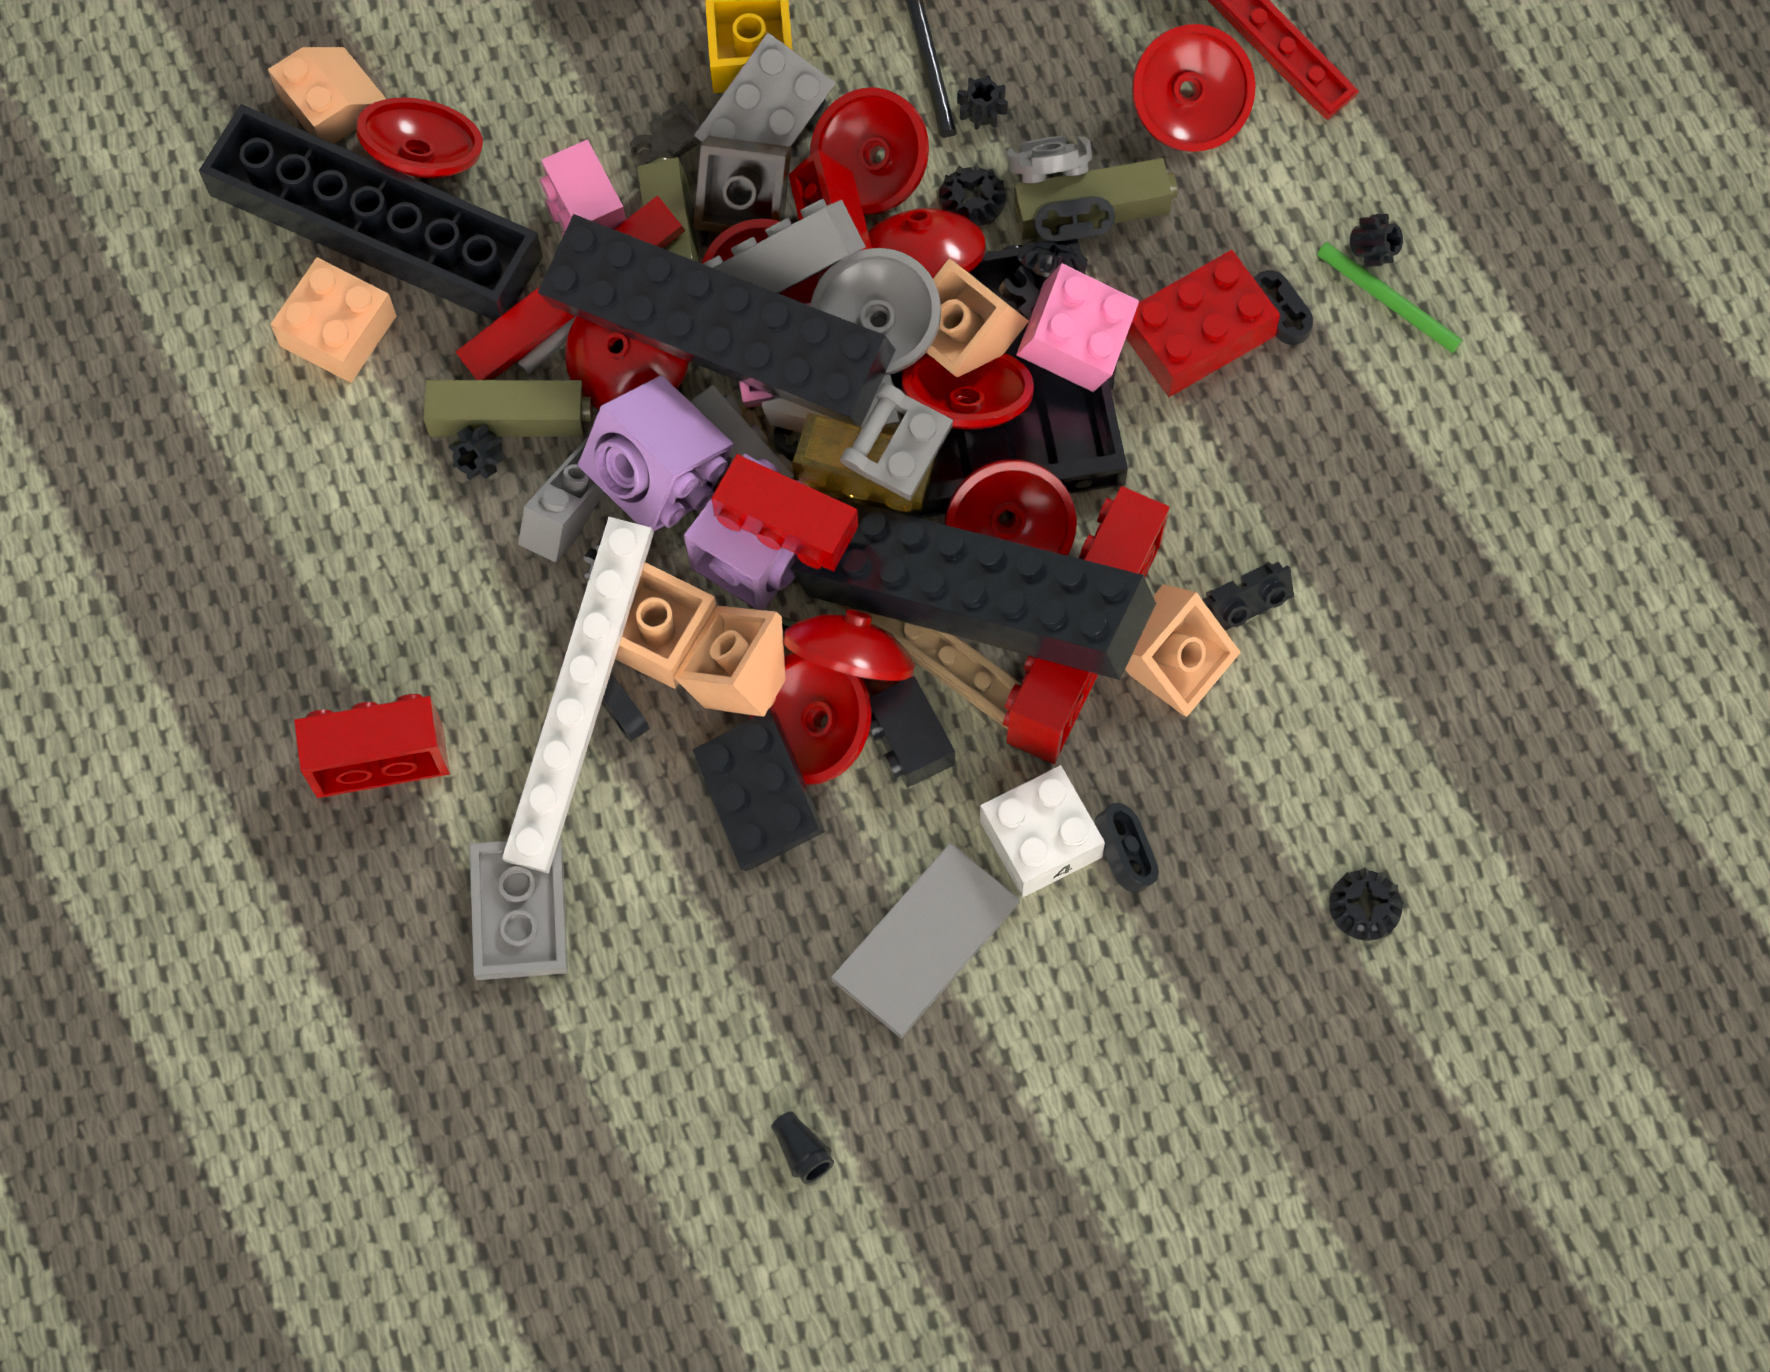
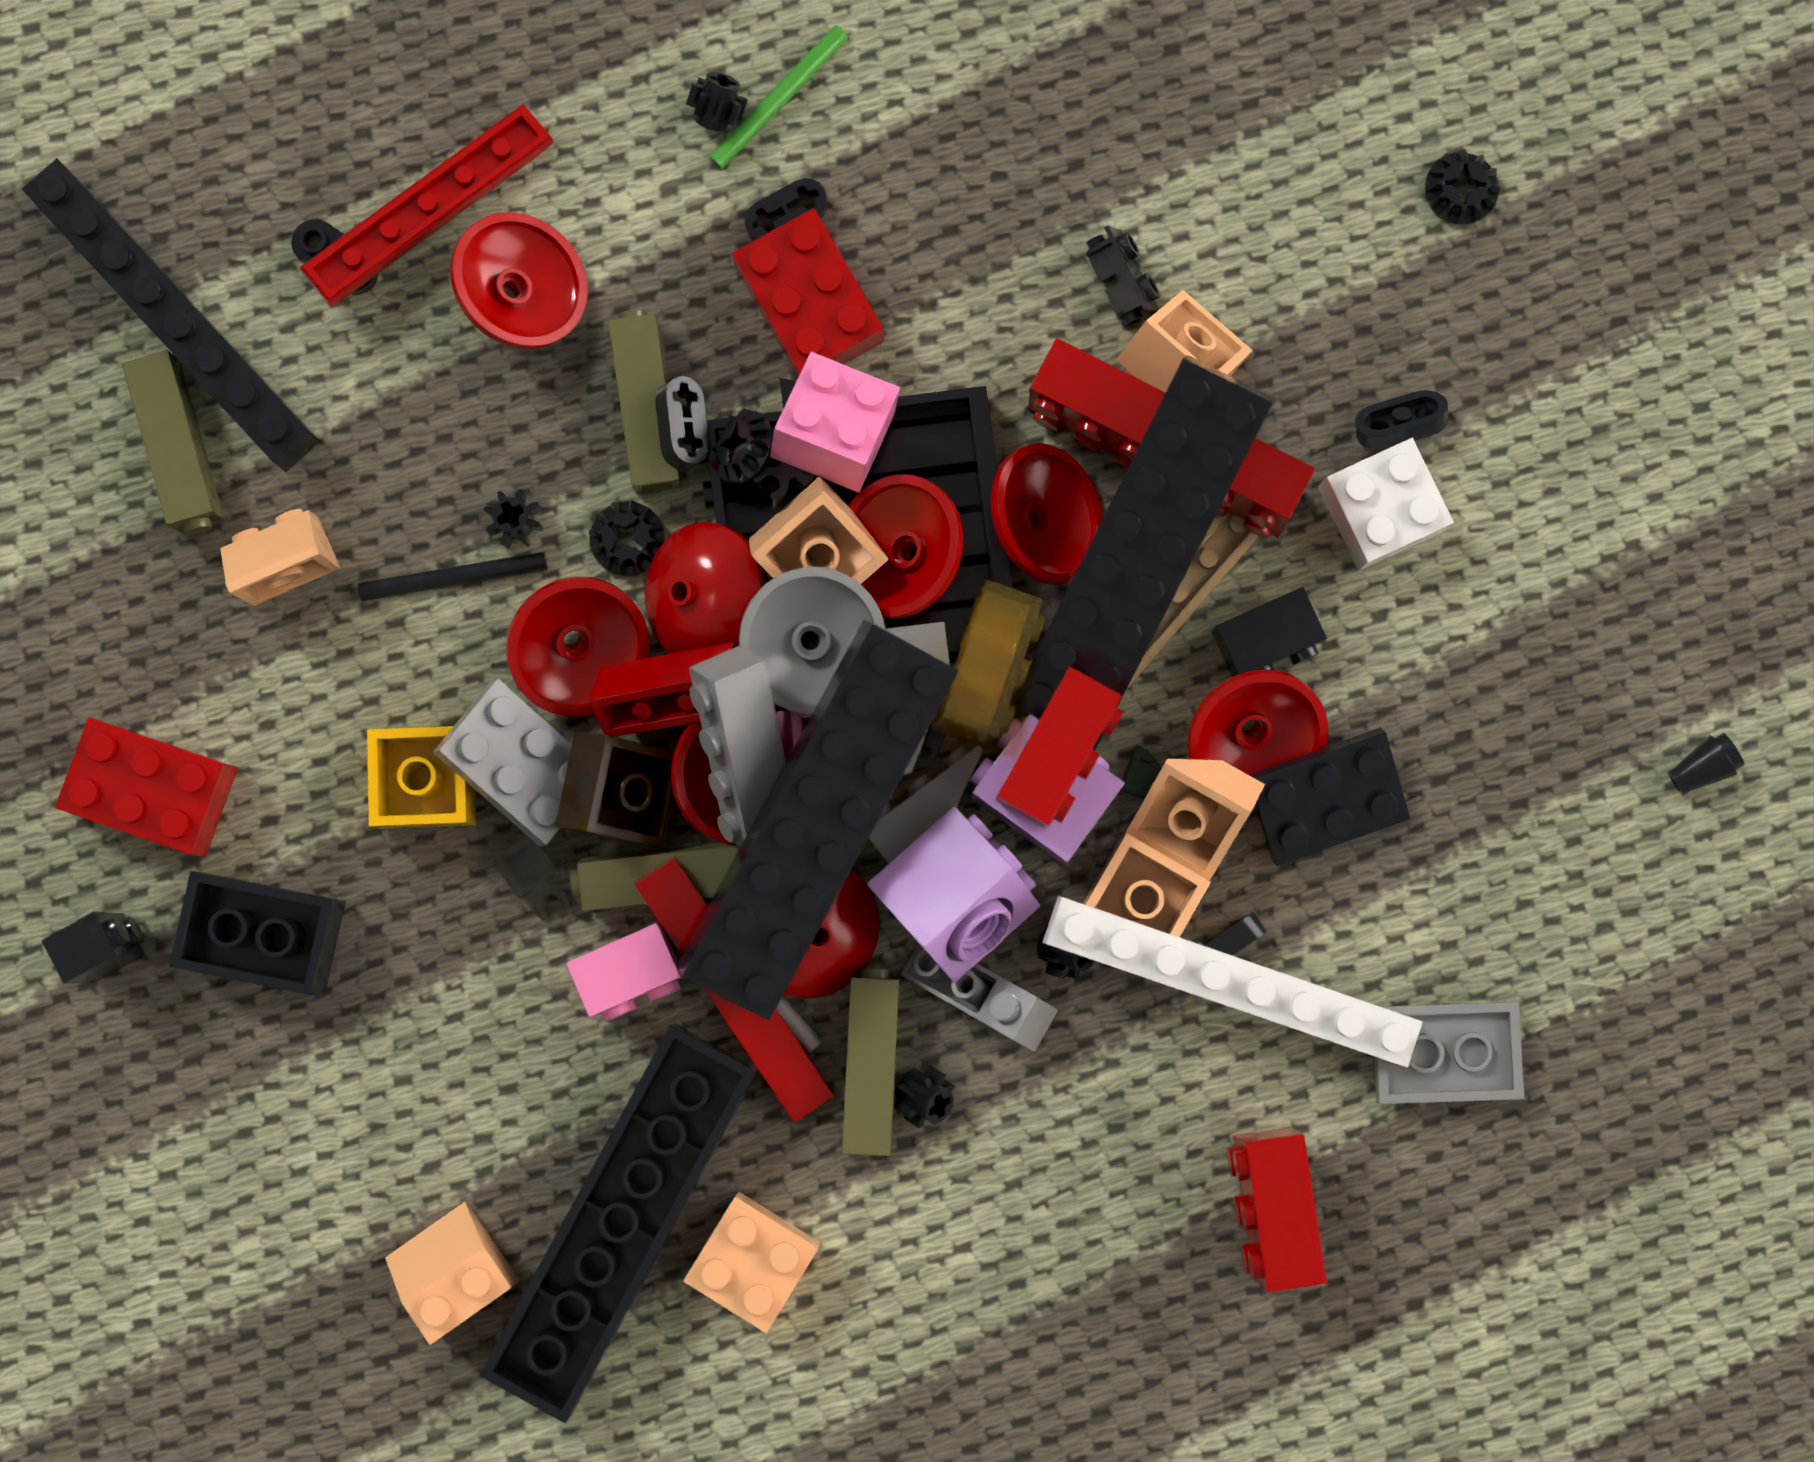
camera: 90 degrees left, 15 degrees up
(419, 137) = (508, 1161): red dish -> none
(850, 646) = (1195, 691): red dish -> none
(910, 448) = (993, 608): light grey plate -> none
(925, 940) = (1489, 631): light grey tile -> none
(1050, 156) = (606, 427): light grey plate -> none

